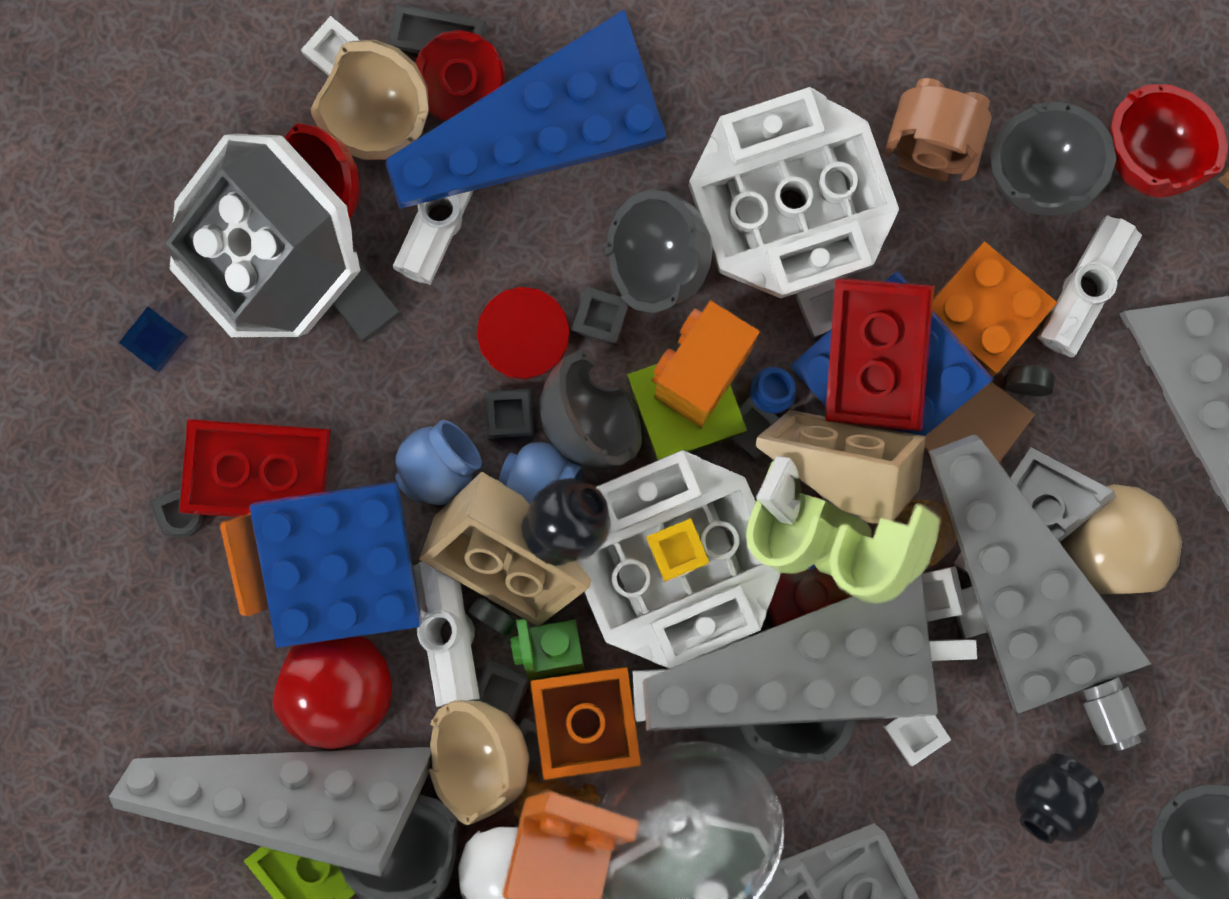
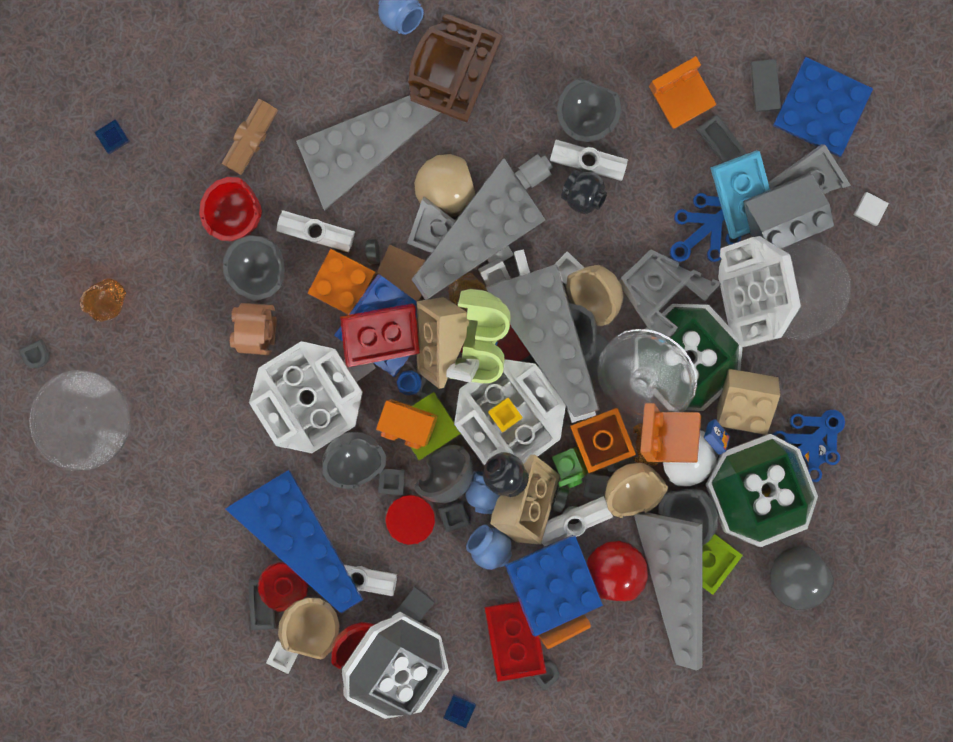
camera: 105 degrees left, 5 degrees up
(867, 780) = (596, 291): none -> tan cylinder
(1129, 792) = (605, 164): none -> white piece

